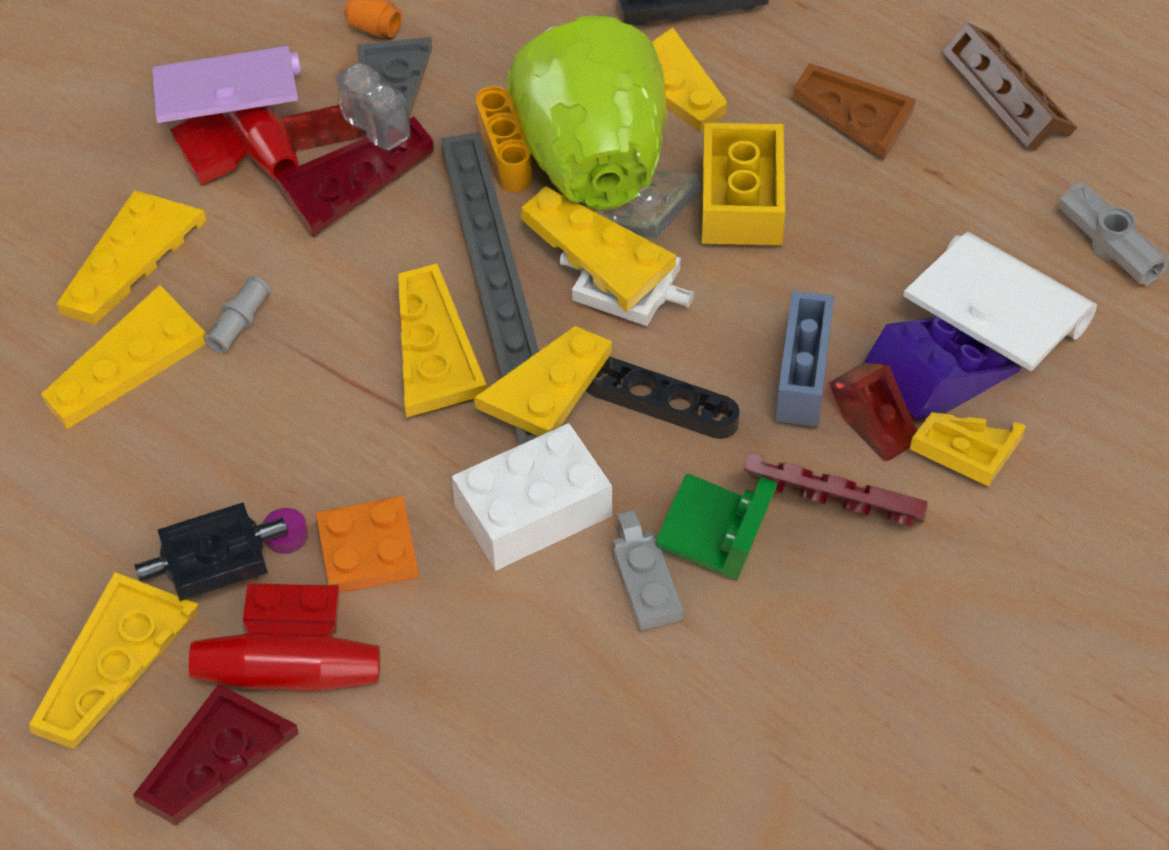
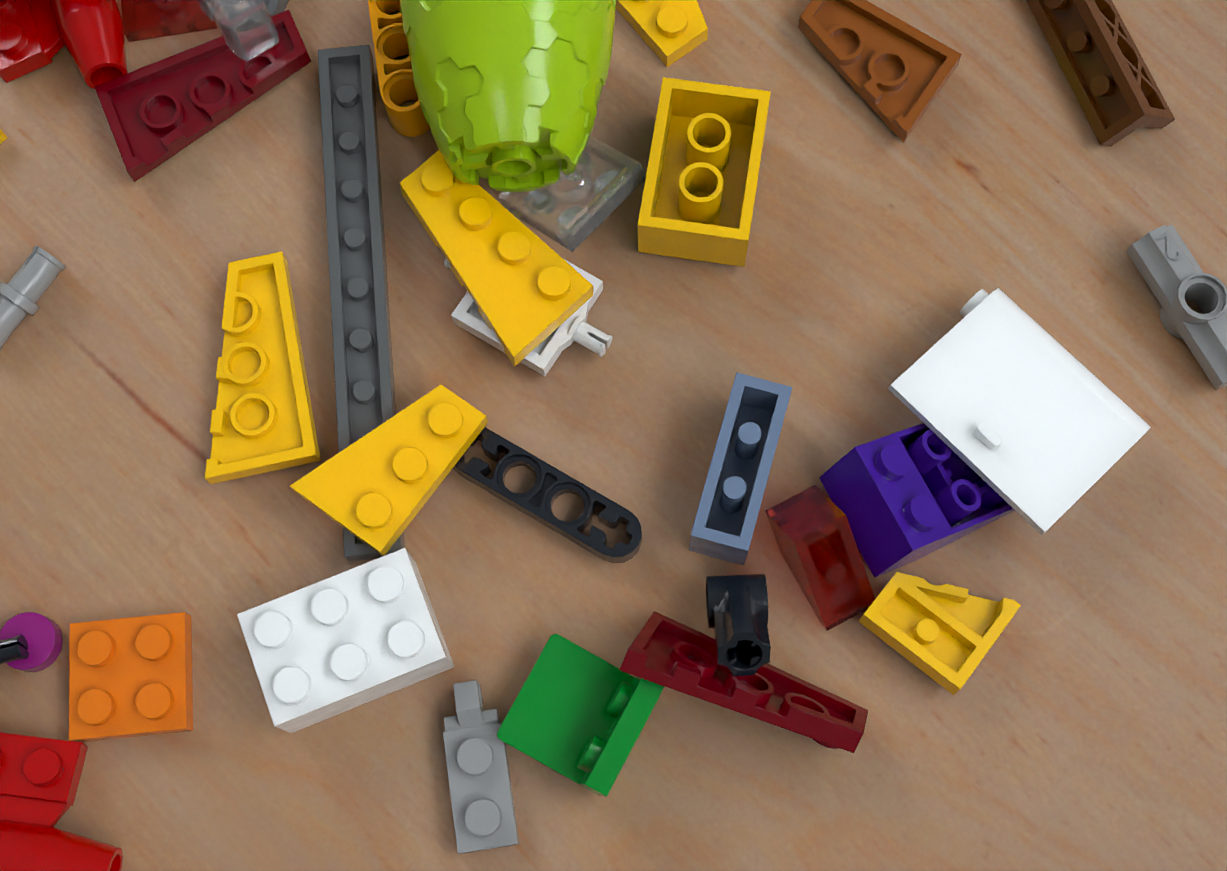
camera: 10 degrees right, 20 degrees up
(821, 446) = (740, 620): none -> black piece

